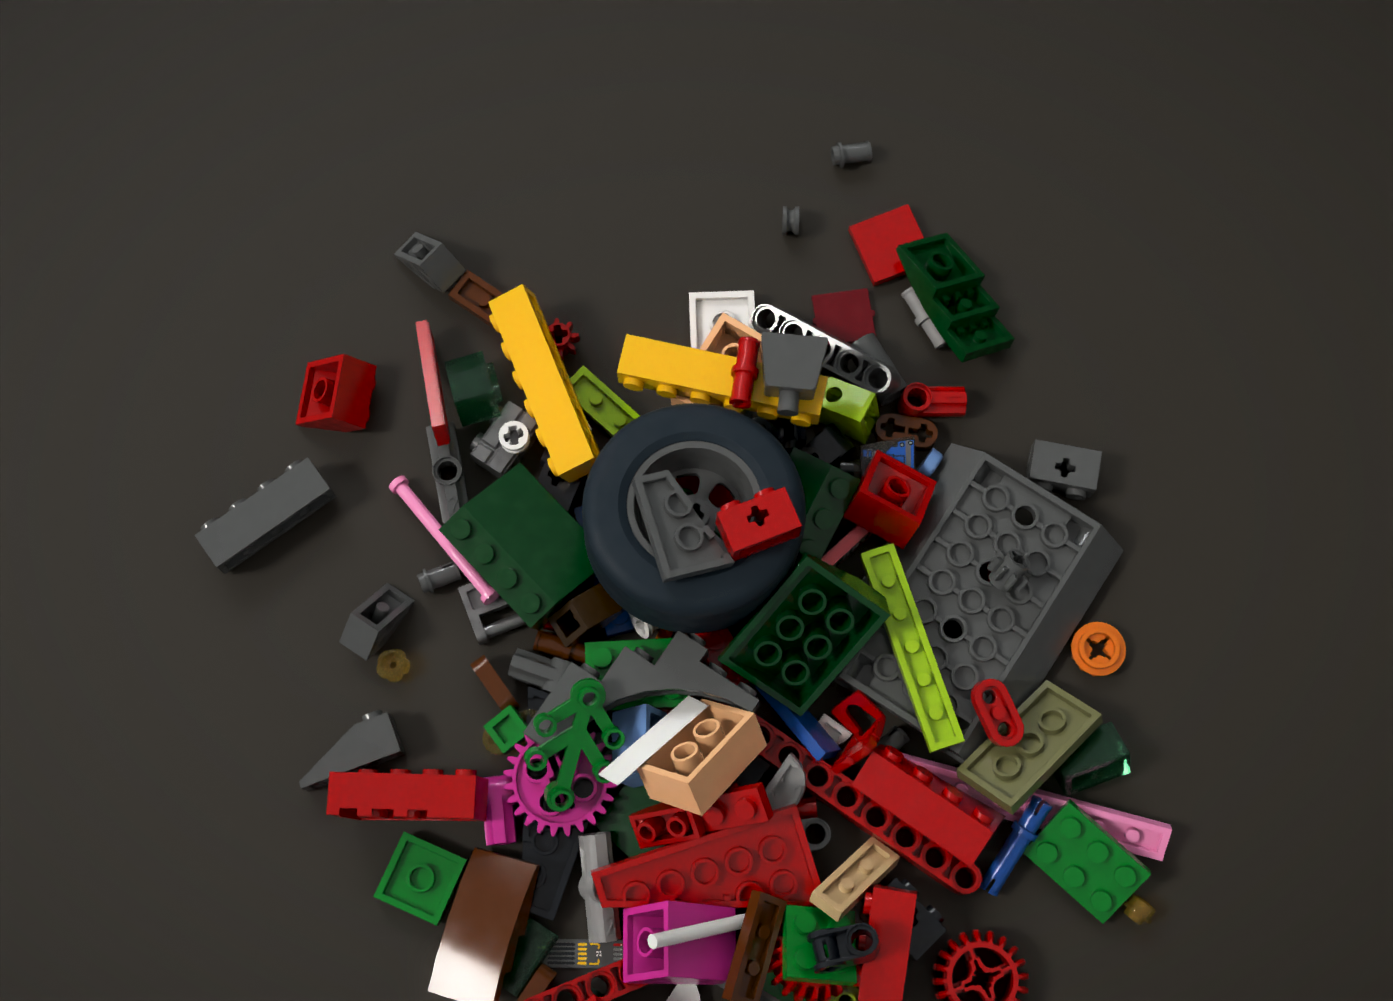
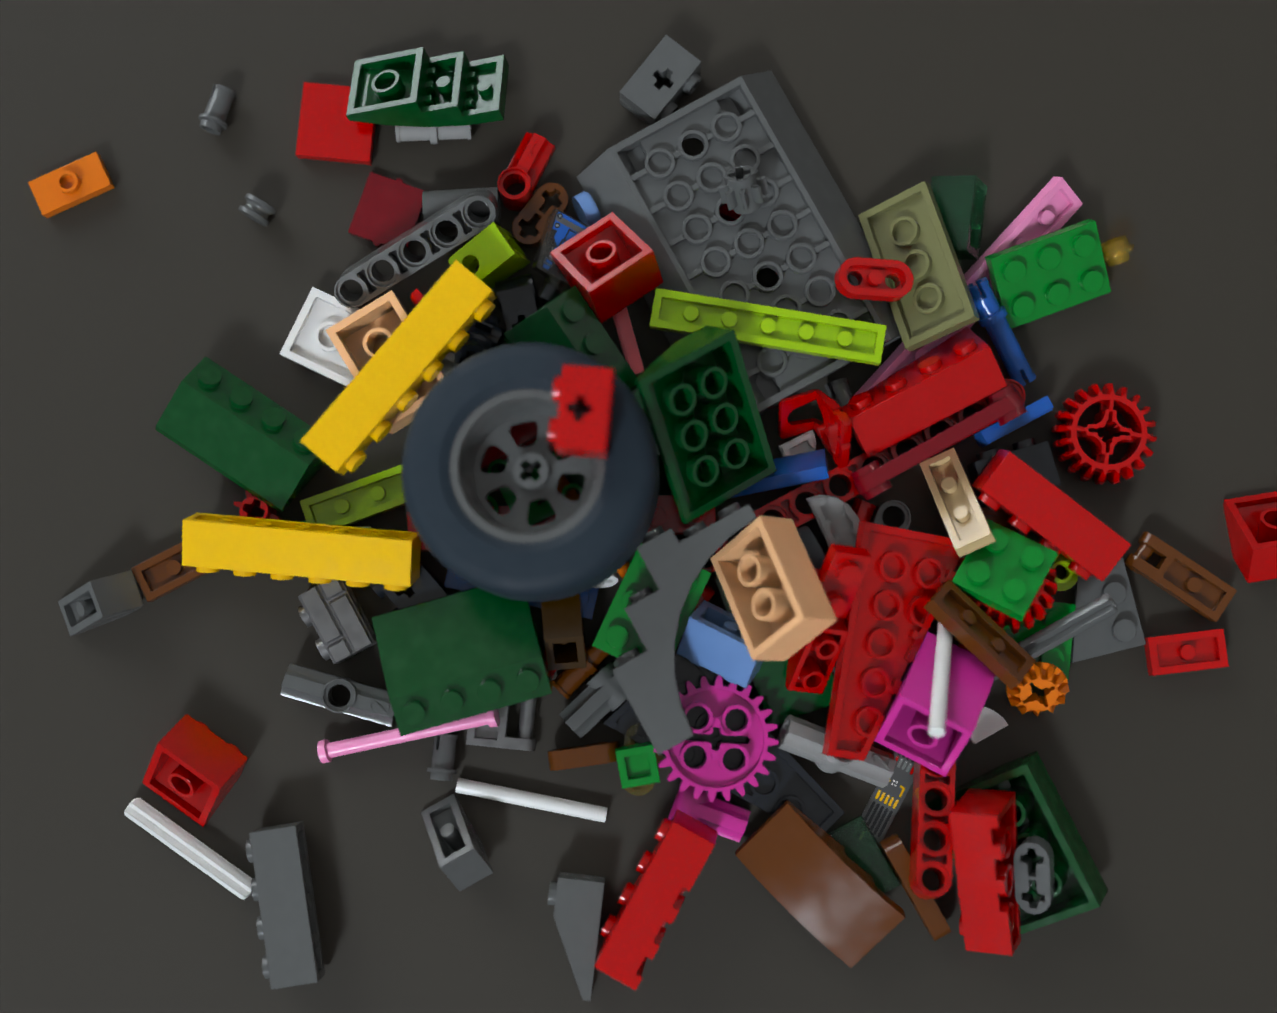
camera: 60 degrees left, 10 degrees up
(274, 421) = (189, 847): none -> white axle
(384, 661) = (512, 857): clear yellow plate -> none
(421, 878) = (737, 922): green plate -> none
(433, 383) = (237, 665): tile -> none
(439, 664) = (531, 800): none -> white bar
(473, 389) = (265, 626): clear green brick -> none
(504, 433) = (351, 603): white bush -> none
(574, 739) = (692, 707): green plant -> none
(610, 294) = (240, 434): none -> dark green slope
(653, 740) = (733, 629): white sticker -> none
(675, 531) = (548, 499): dark grey wing -> none
(735, 80) = (71, 185): none -> orange plate
(744, 372) = (408, 341): red pin -> none
(791, 368) = (430, 291): dark grey torso -> none
(840, 947) = (1024, 551): black piece -> none
(948, 896) = (995, 432): none -> blue tile
(952, 874) = (1002, 406): none -> dark red piece
(1114, 648) = (859, 134): orange gear -> none

